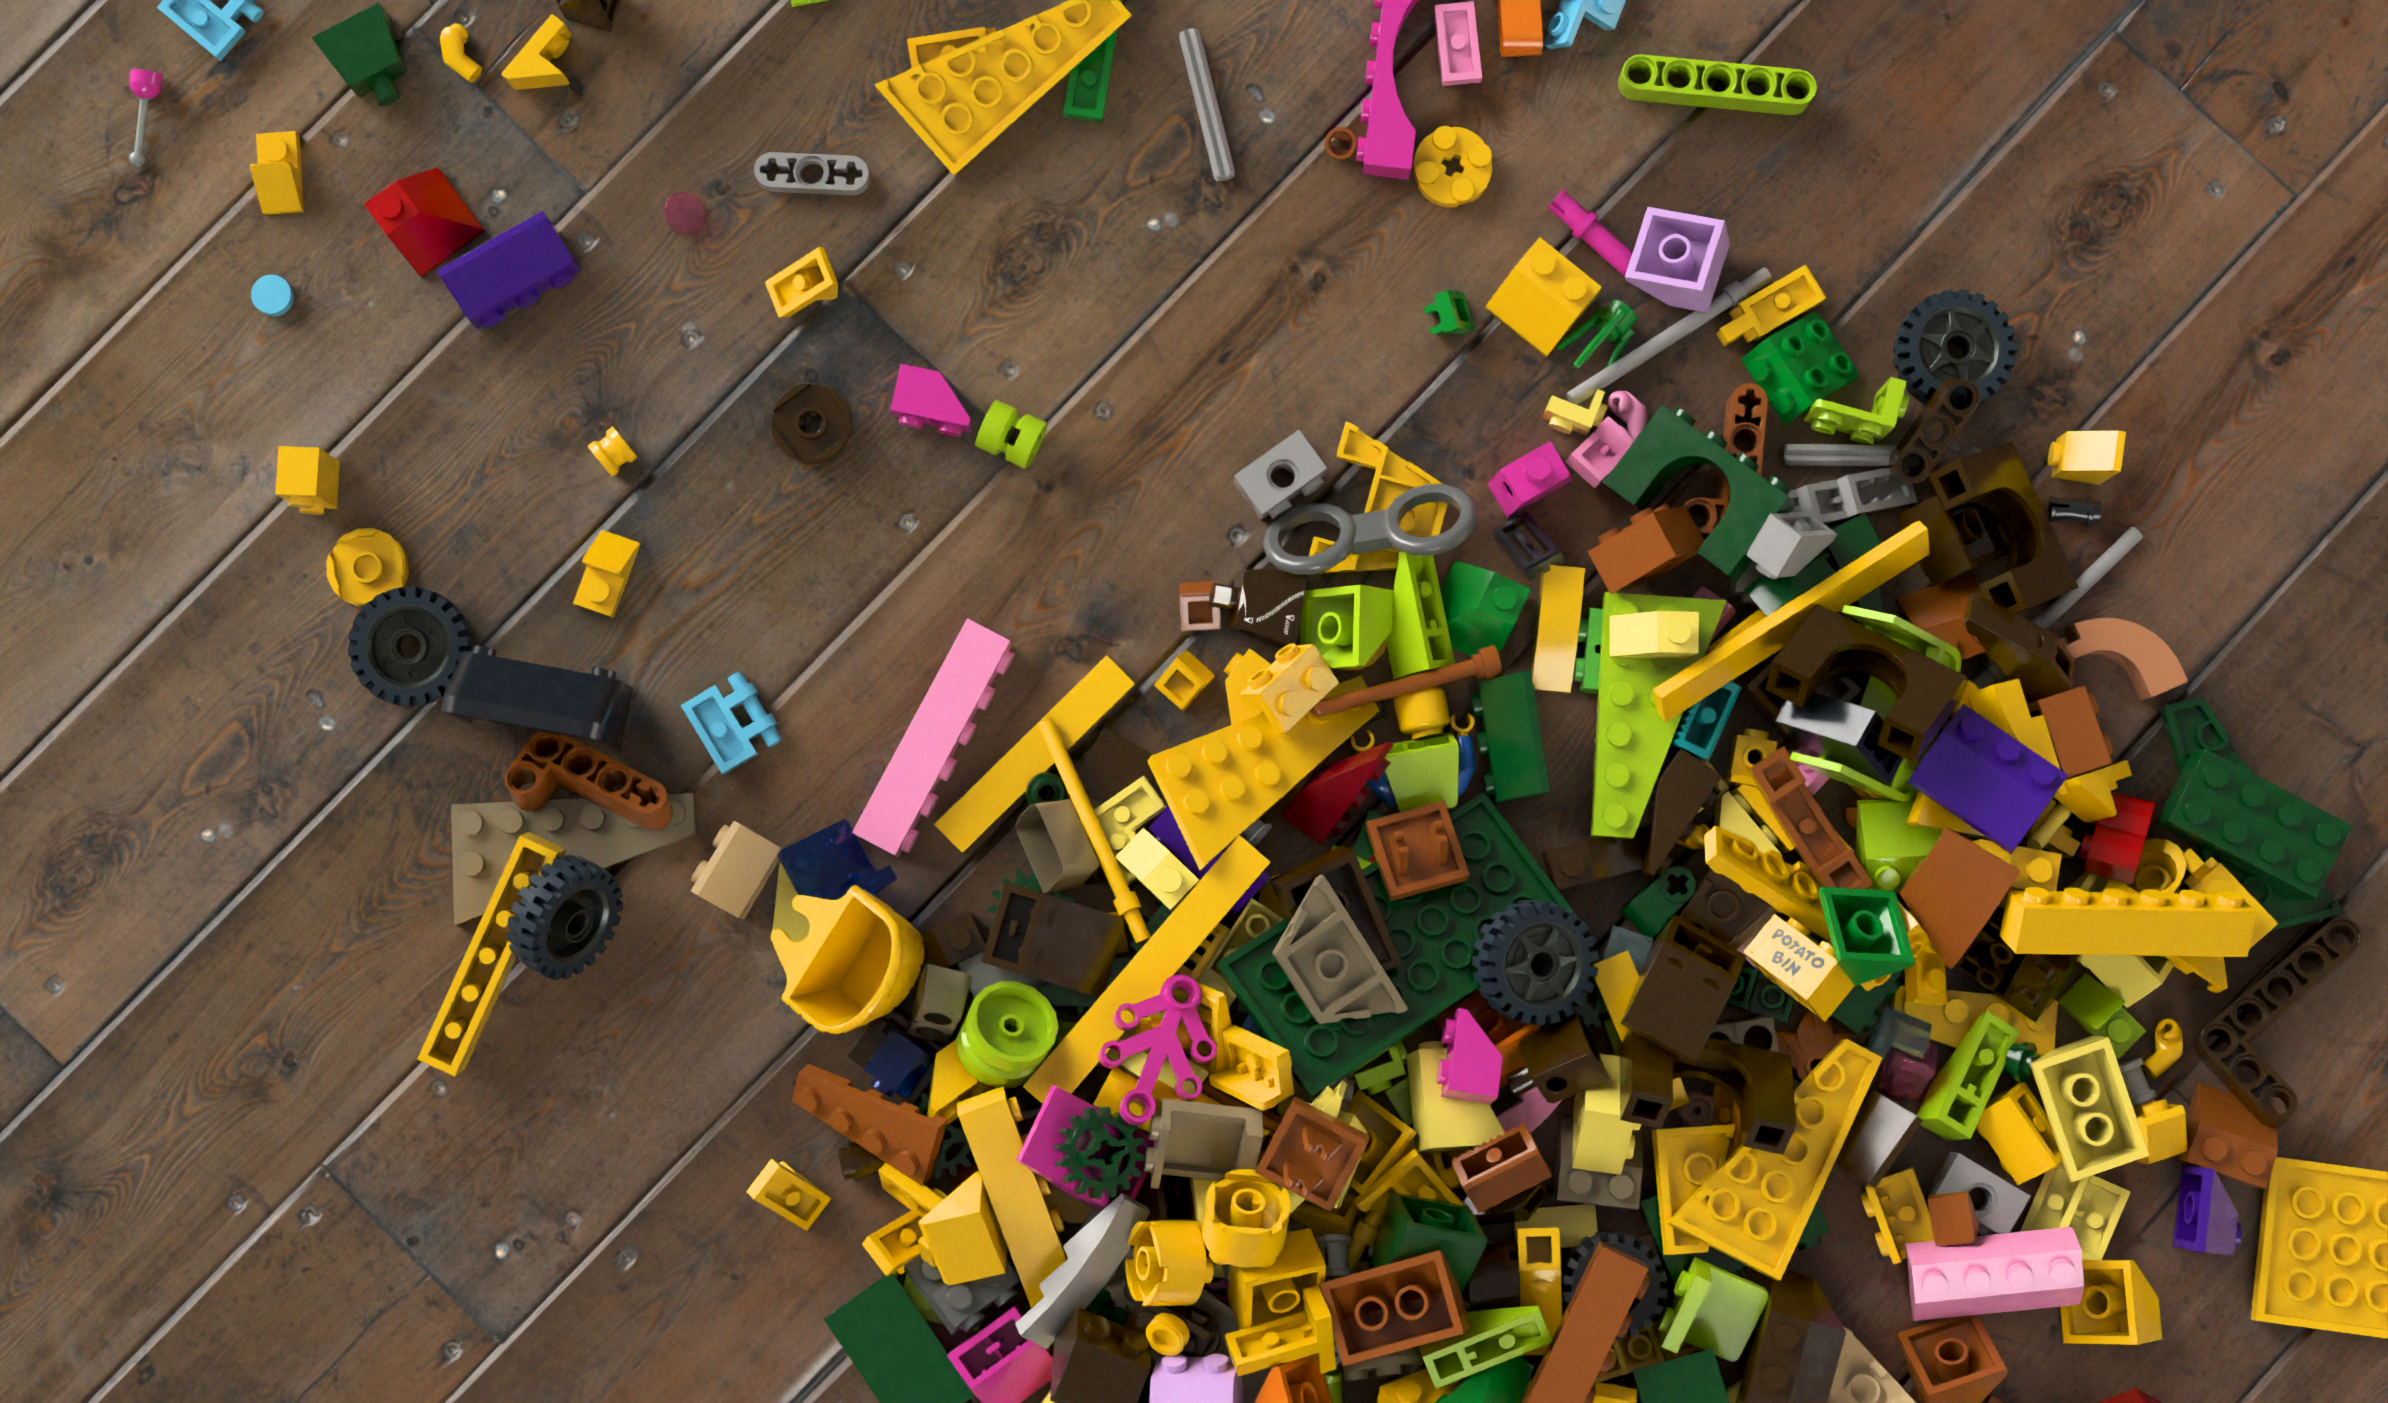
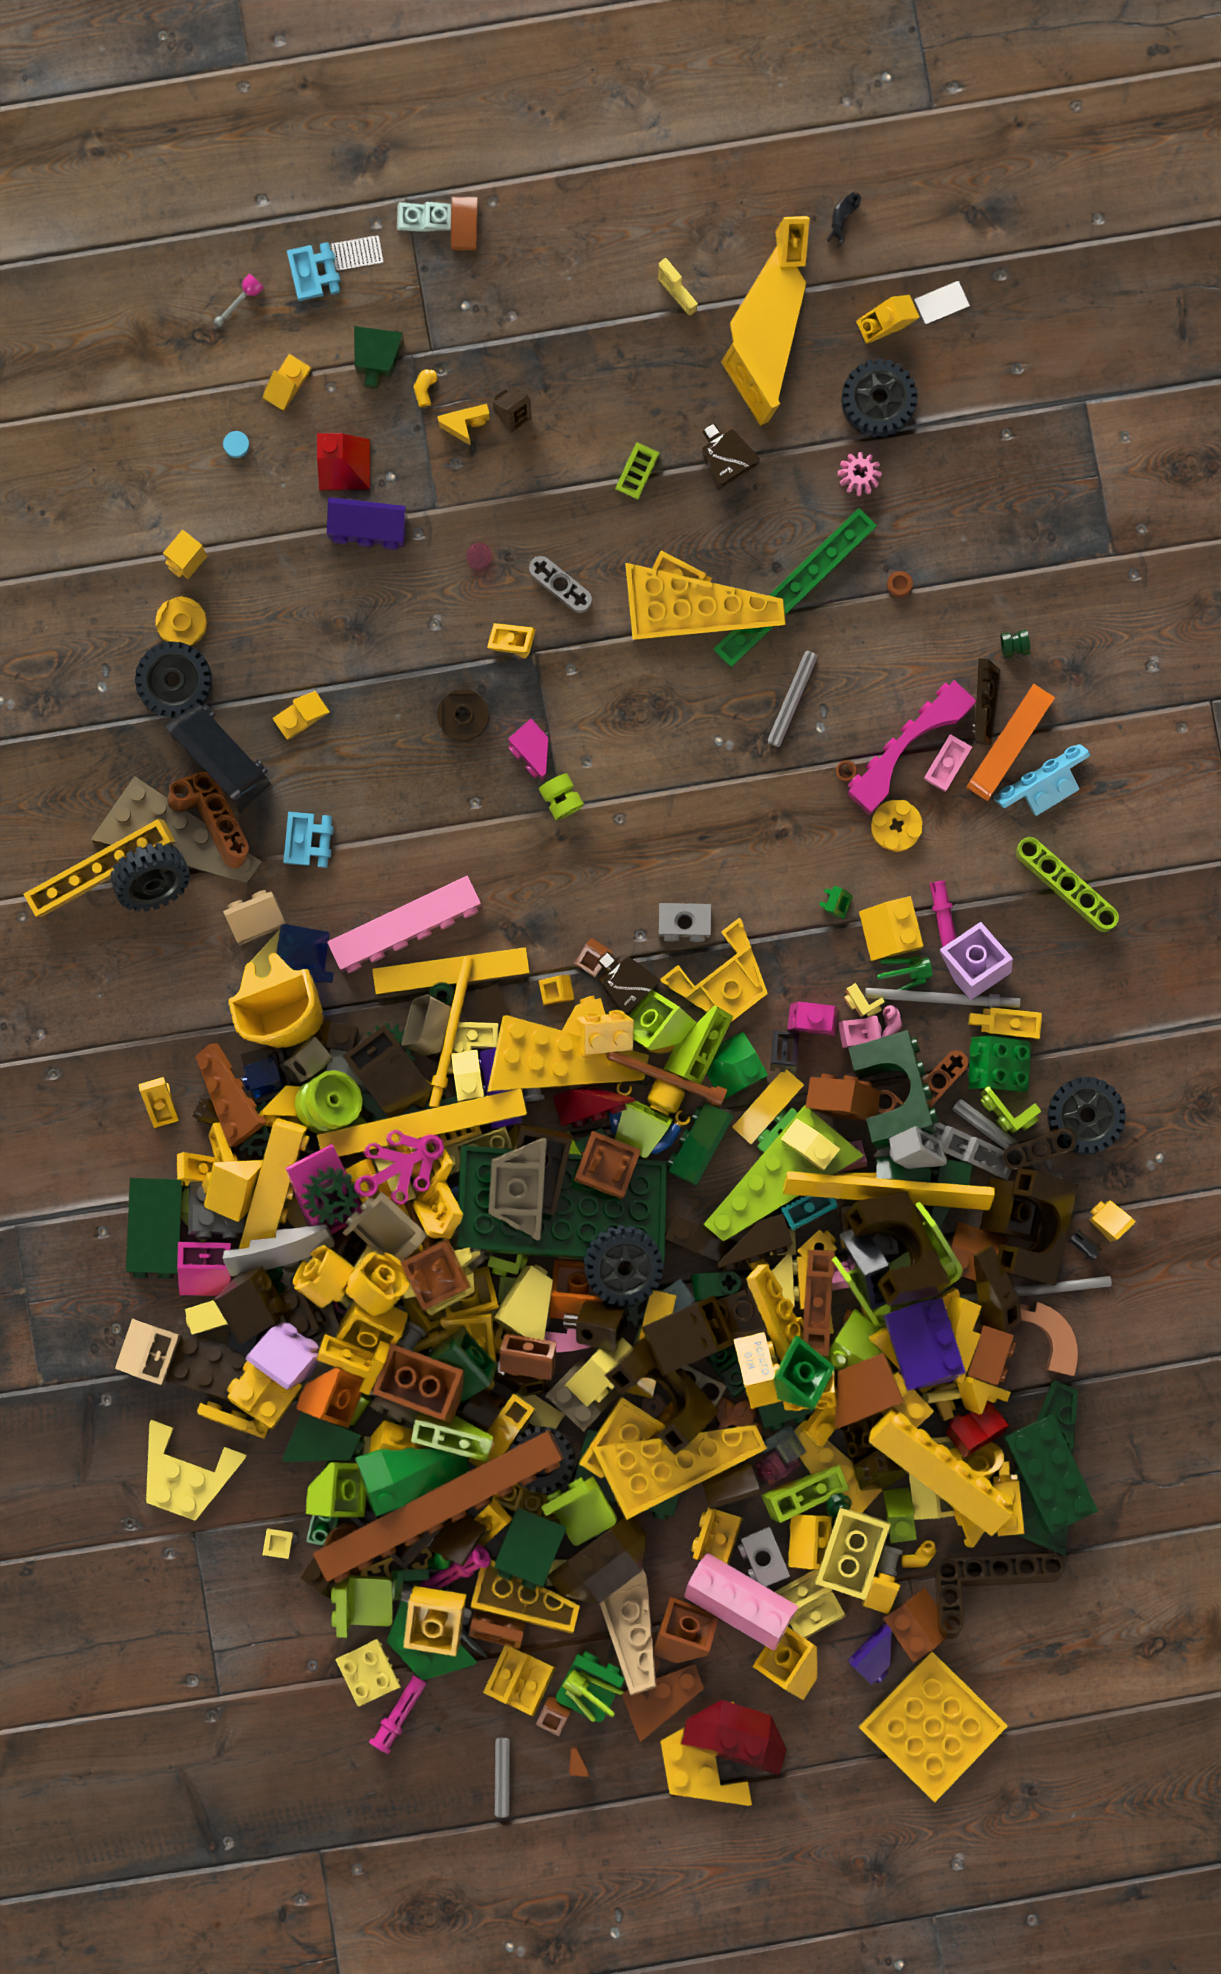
camera: 35 degrees right, 0 degrees up
(612, 451) = (350, 654): yellow wheel -> none
(1167, 1334) = (296, 1313): yellow tile -> none
(1370, 530) = (708, 983): dark grey bar -> none
(1471, 1061) = (552, 1292): dark pink slope -> none
(1953, 1218) = (740, 1557): dark orange slope -> none

